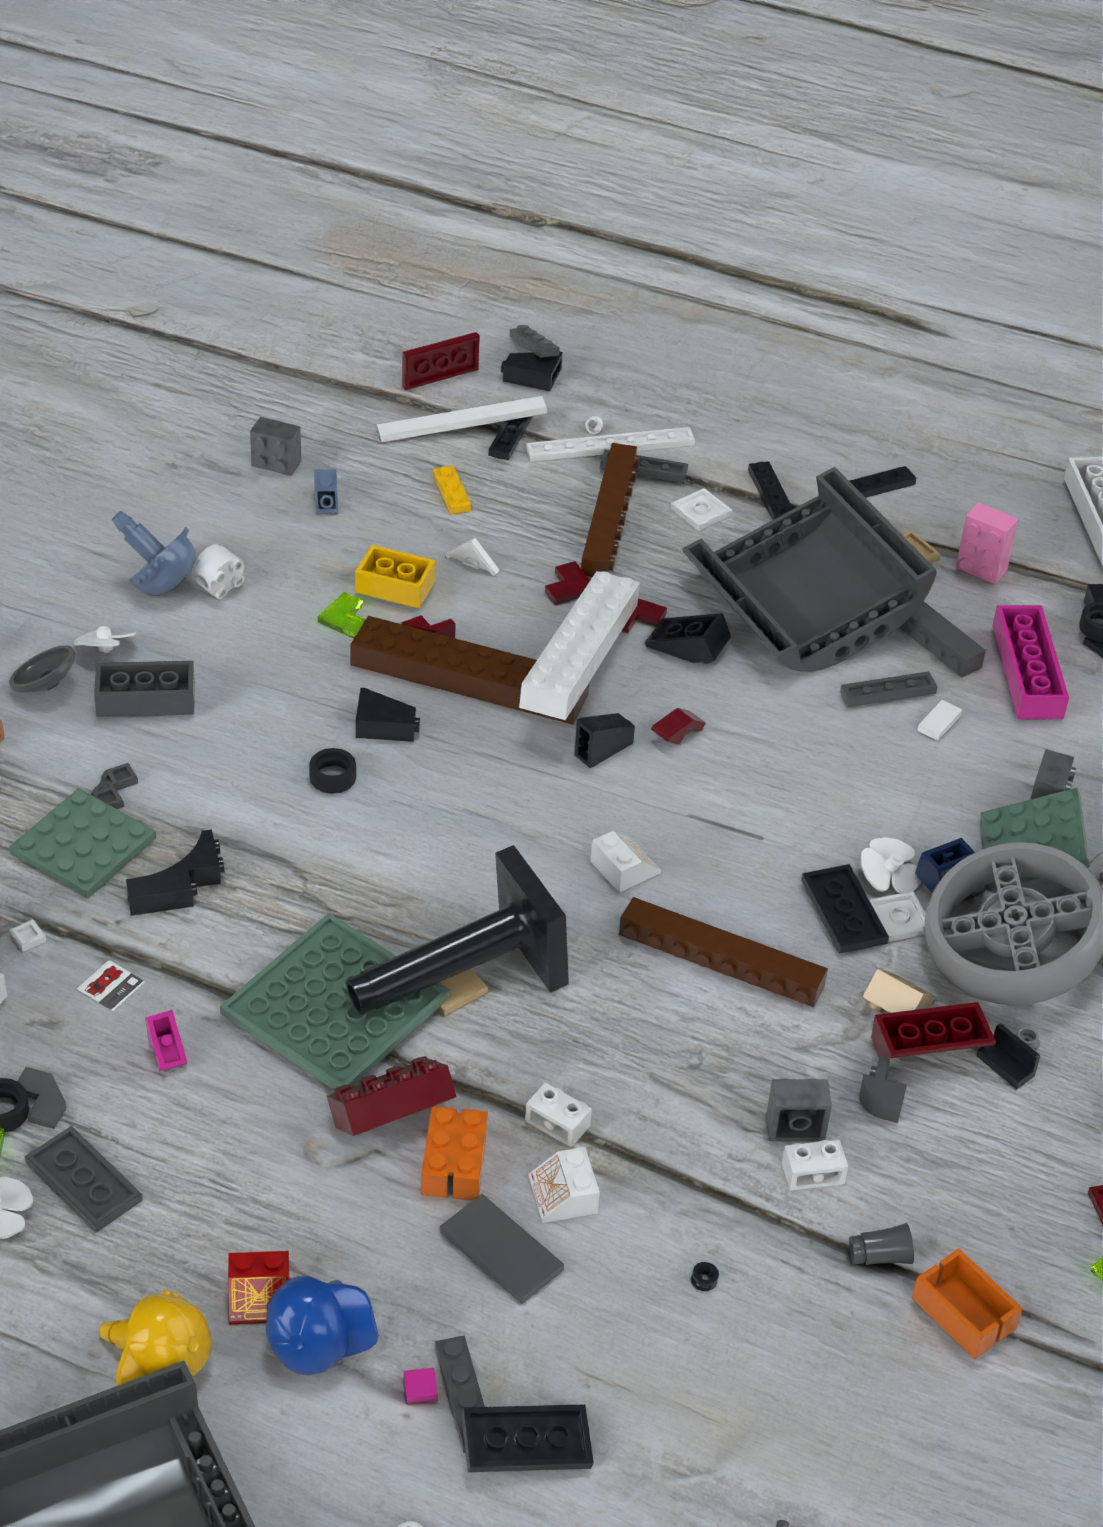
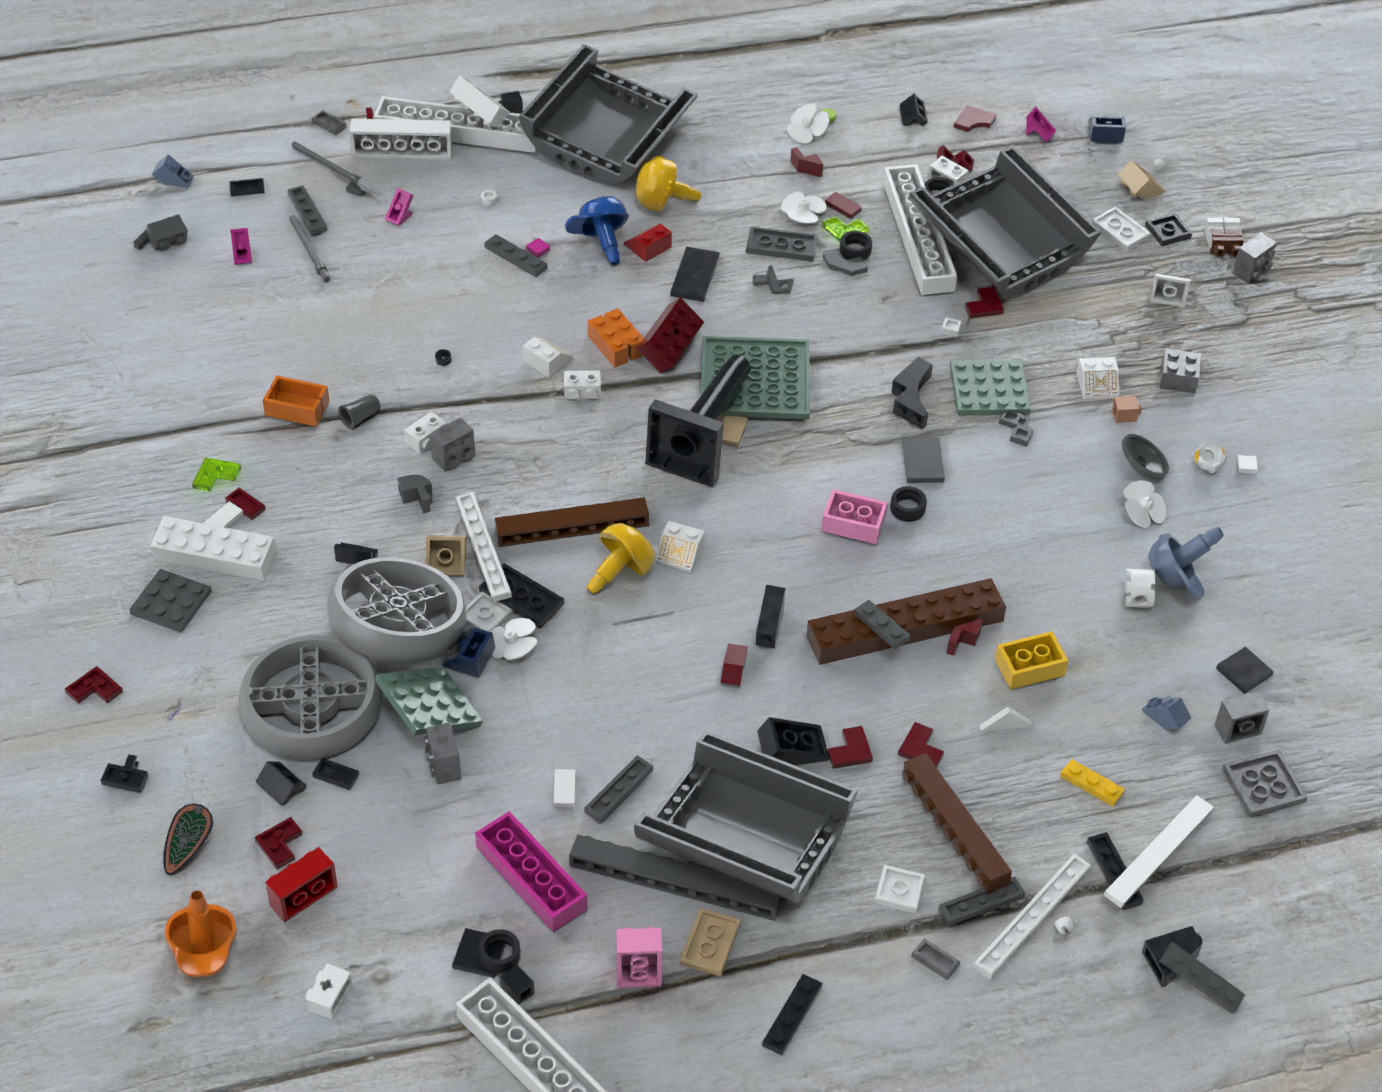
camera: 145 degrees right, 5 degrees up
(111, 985) = (880, 330): sticker -> none
(144, 688) = (1073, 481): dark grey brick -> none
(165, 1040) = (816, 307): dark pink slope -> none
(167, 1117) = (771, 280): none -> dark grey bracket
(210, 489) = (1244, 670): none -> black tile
(247, 1201) = (695, 274): none -> black tile
(257, 809) = (923, 460): none -> dark grey tile
(318, 415) = (1264, 783): none -> flat silver plate
(341, 615) = (1034, 619): clear neon green tile -> none
(385, 718) = (920, 555): black slope -> none
(410, 779) = (854, 516): none -> bright pink brick
(440, 360) = (1239, 895): dark red tile -> none
(501, 1248) = (554, 317): dark grey tile -> none
(511, 652) = (881, 624): none -> dark grey plate
(526, 1438) = (467, 244): black plate -> none
(579, 645) = (843, 657): white brick -> none
(703, 858) = (626, 548): none -> yellow piece
(720, 459) = (935, 959): none -> flat silver tile
(769, 489) = (865, 947): black plate -> none
(849, 980) = (483, 547): none -> white tile
(931, 1030) = (407, 527): dark red slope -> none

